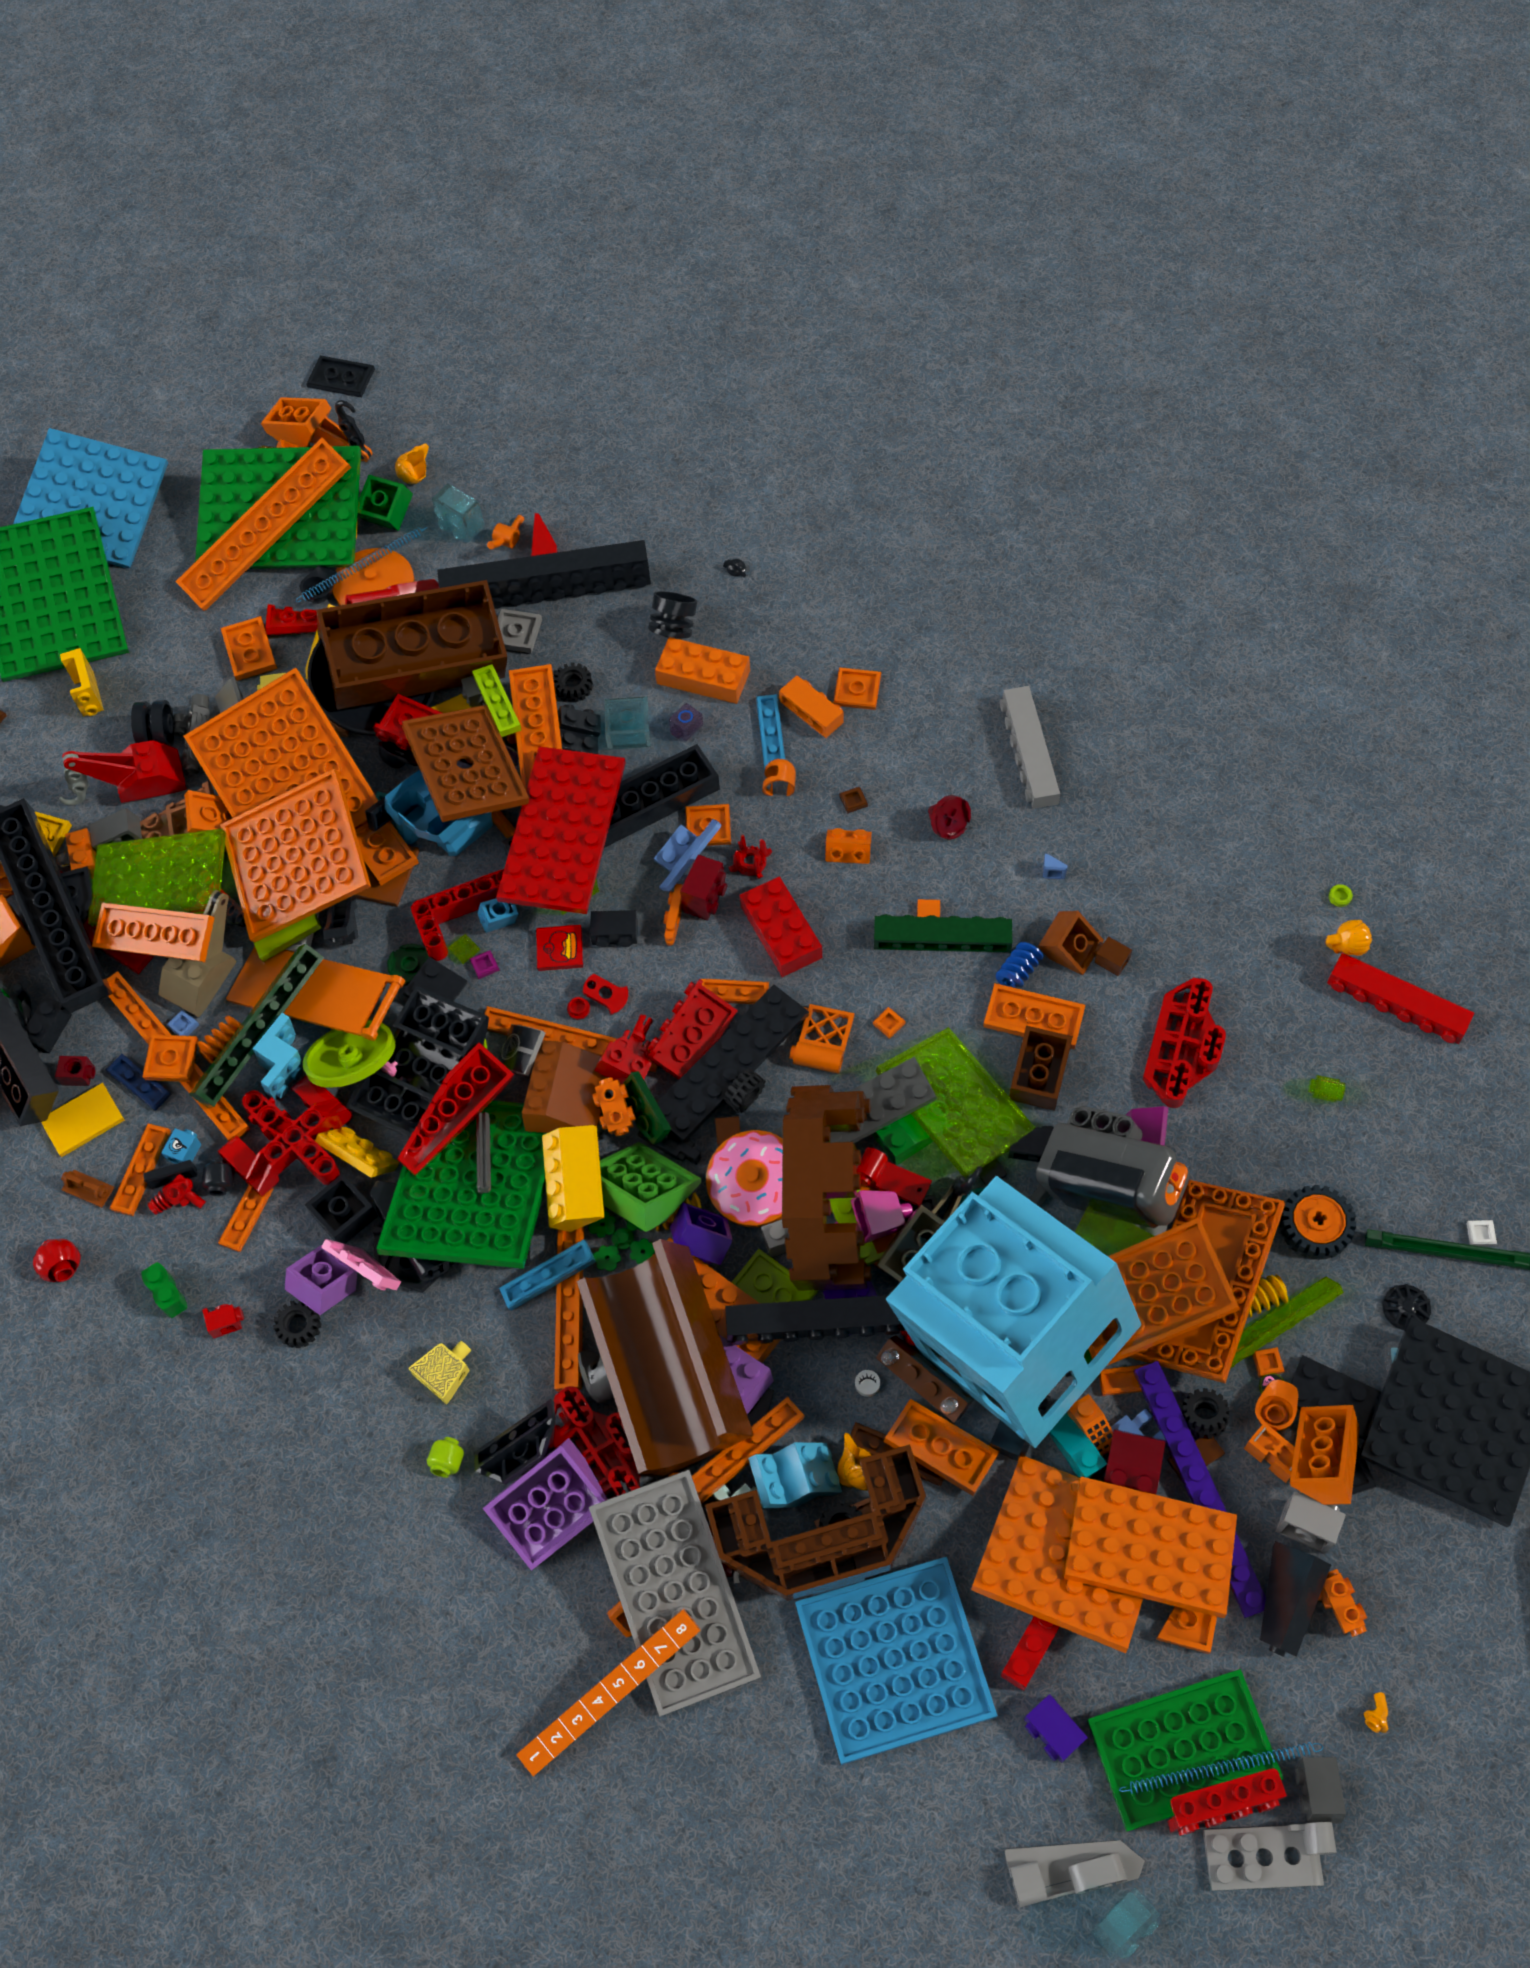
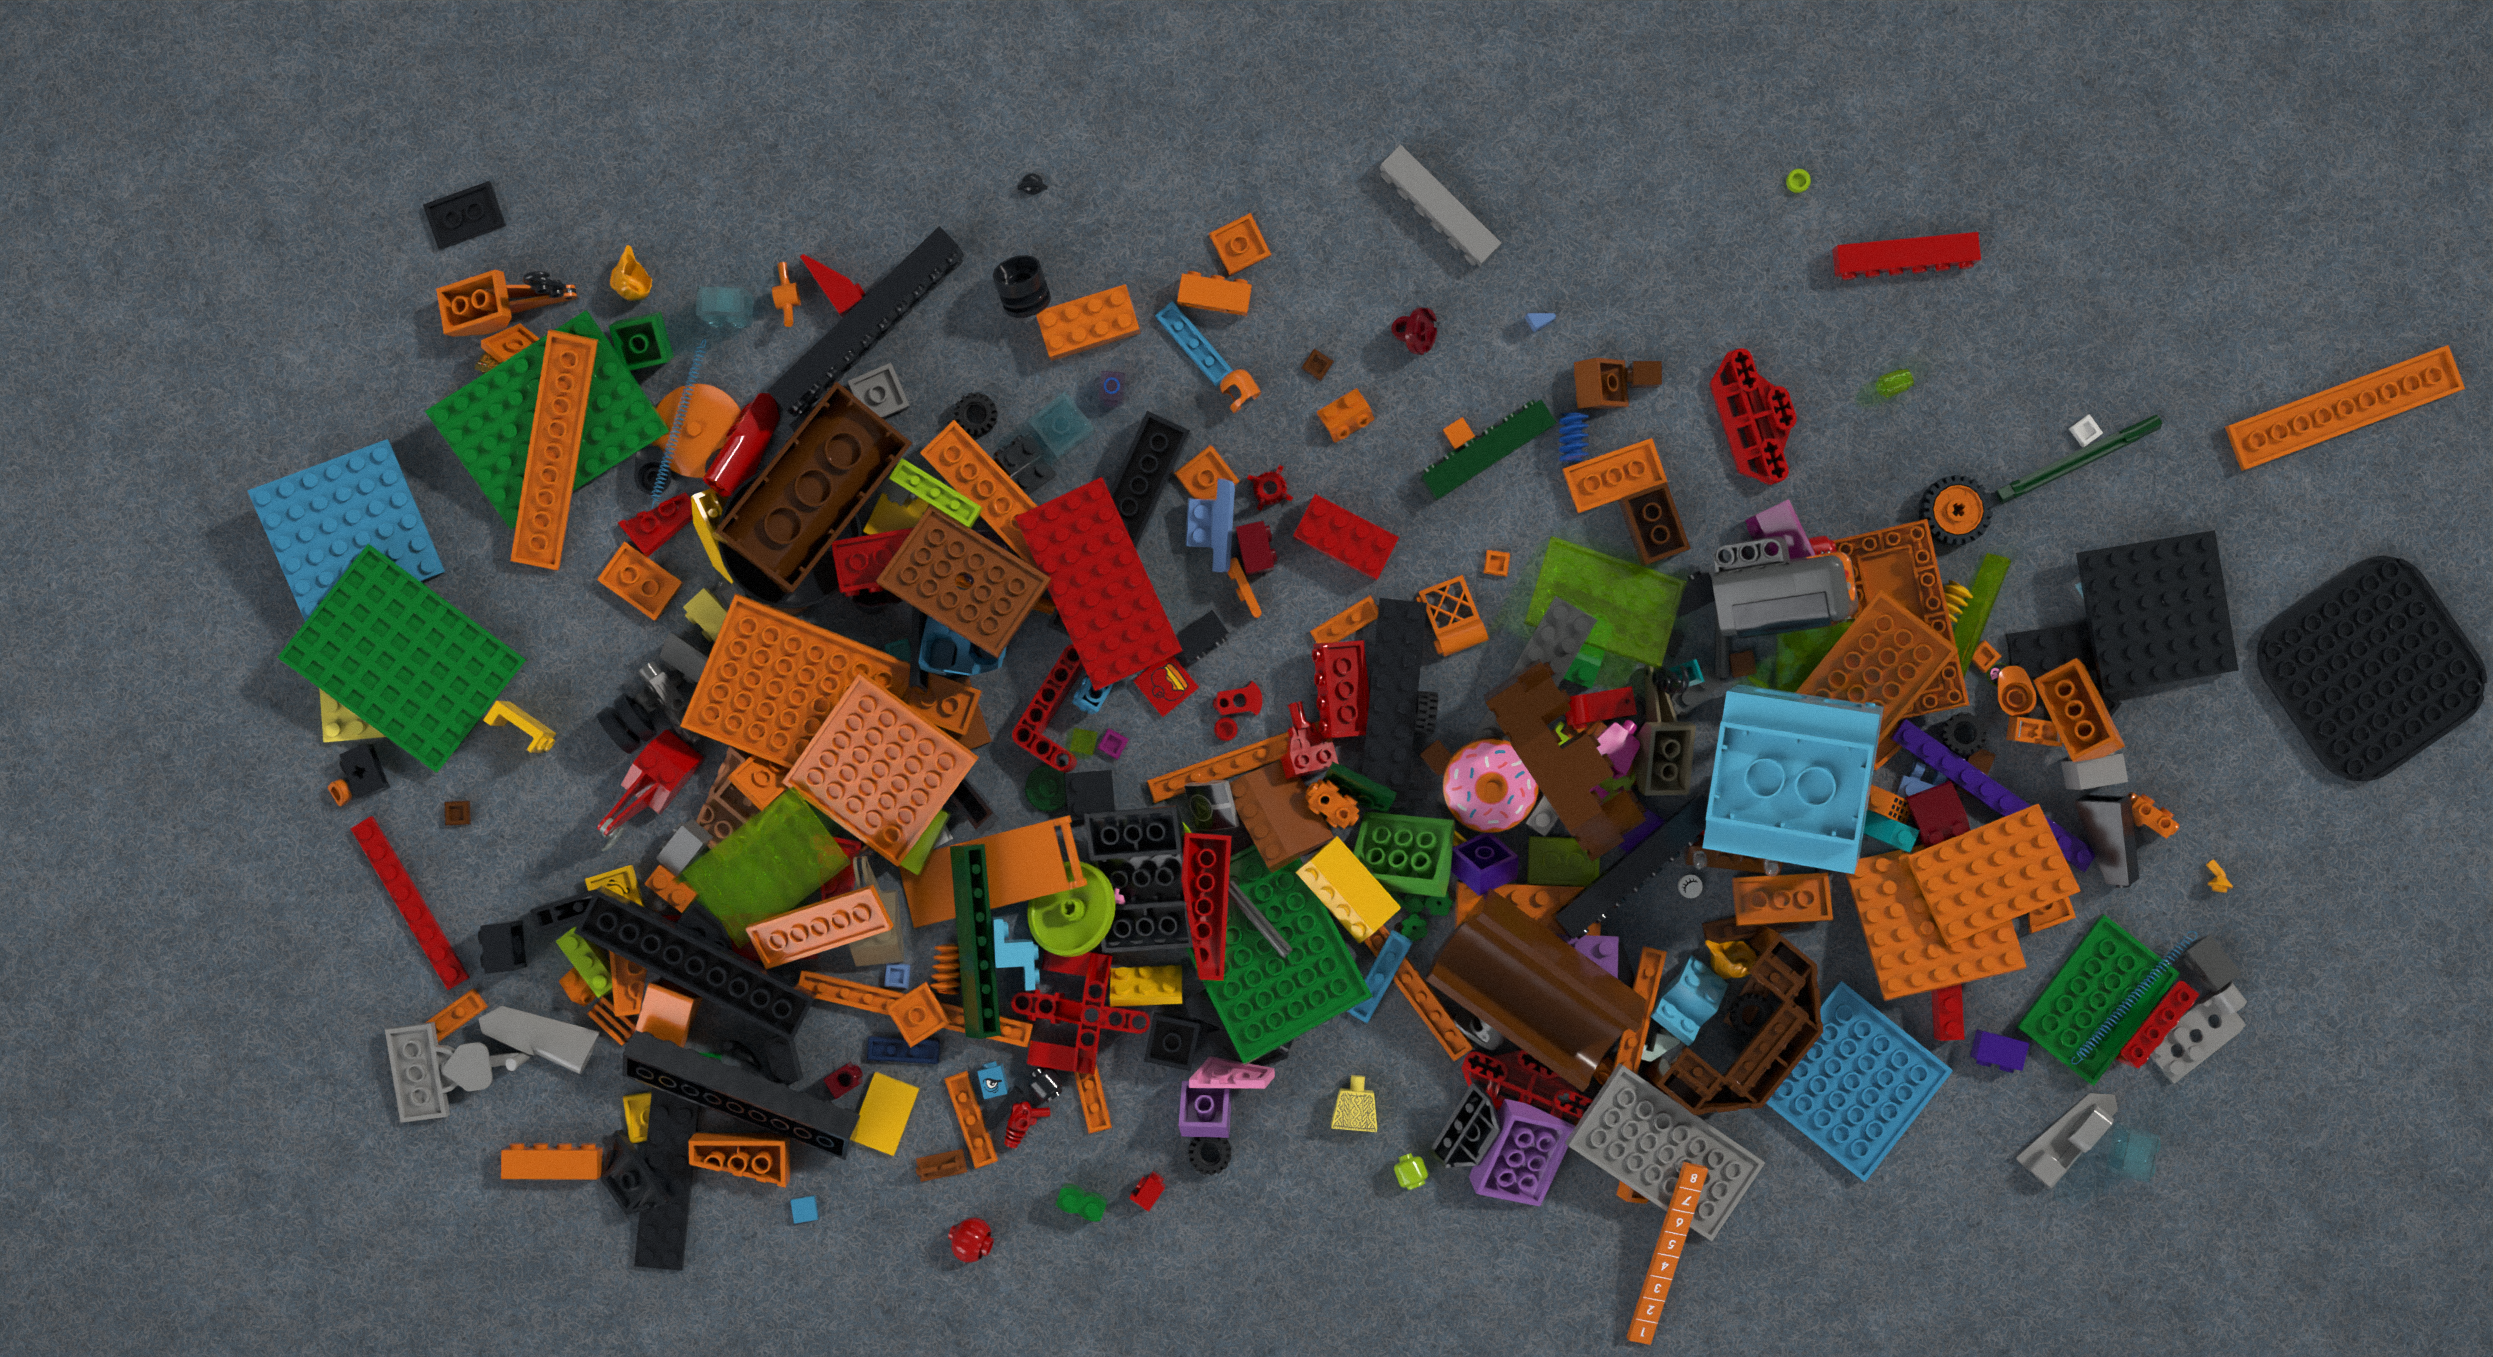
camera: 40 degrees left, 25 degrees up
(1351, 938) = (1839, 229): light orange hair -> none
(1406, 1306) = (2063, 535): black wheel -> none

